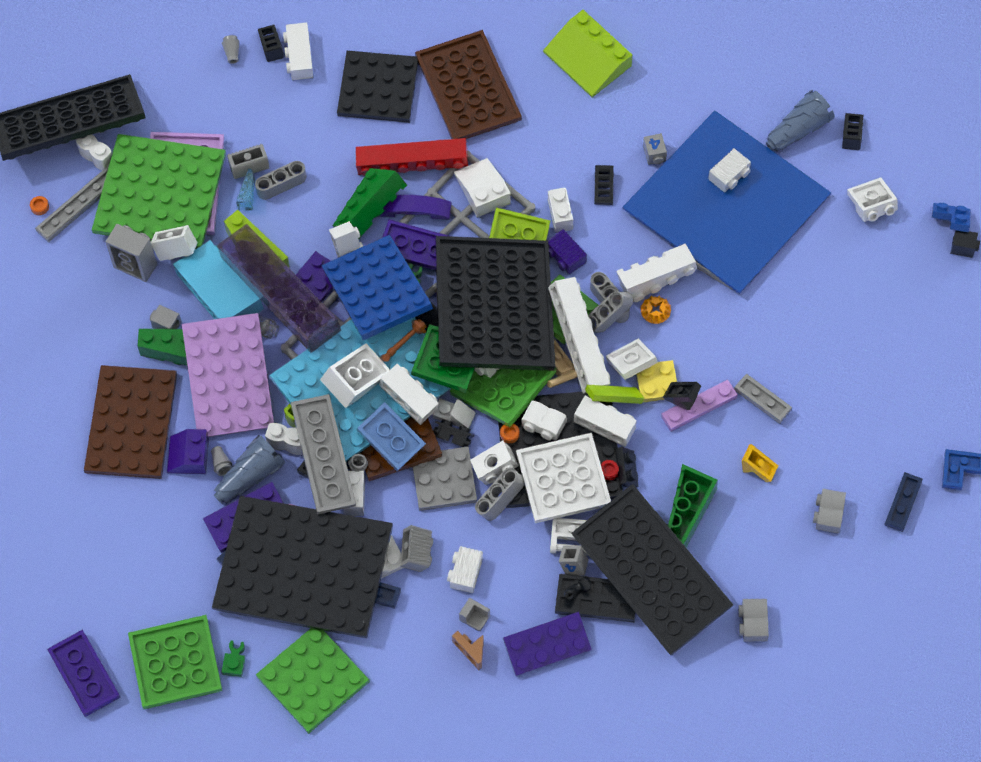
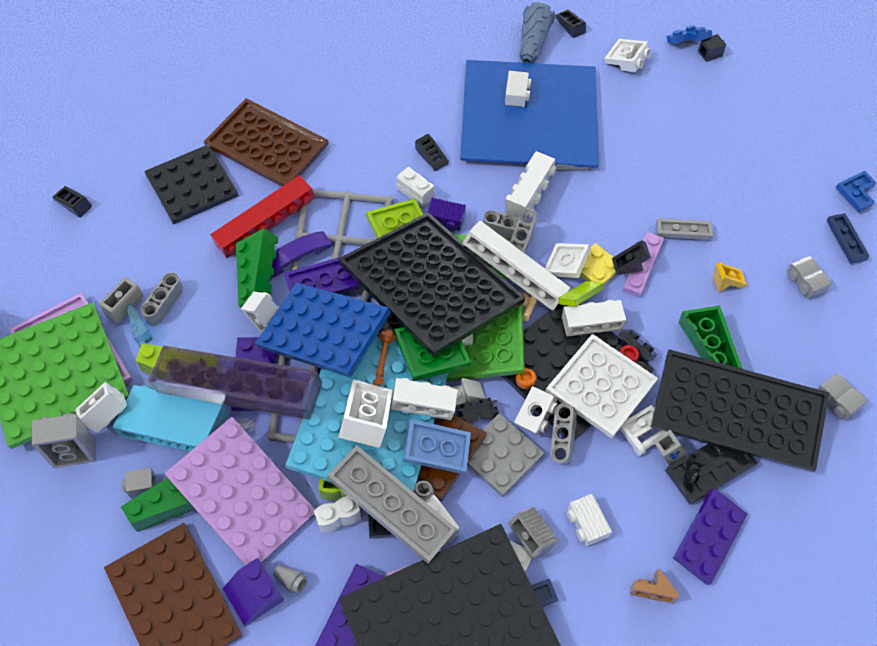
camera: 40 degrees left, 5 degrees down
(231, 48) = (38, 222): light grey cone -> none
(250, 468) = (326, 565): sand blue cone -> none
(298, 51) = (102, 192): white brick -> none
(474, 614) = (629, 555): light grey panel -> none
(483, 187) = (341, 204): white slope -> none
(543, 420) = (546, 349): white brick -> none
(588, 53) = (341, 71): lime slope -> none
(654, 149) = (447, 106): light grey brick -> none
(655, 317) = (555, 218): light orange gear -> none

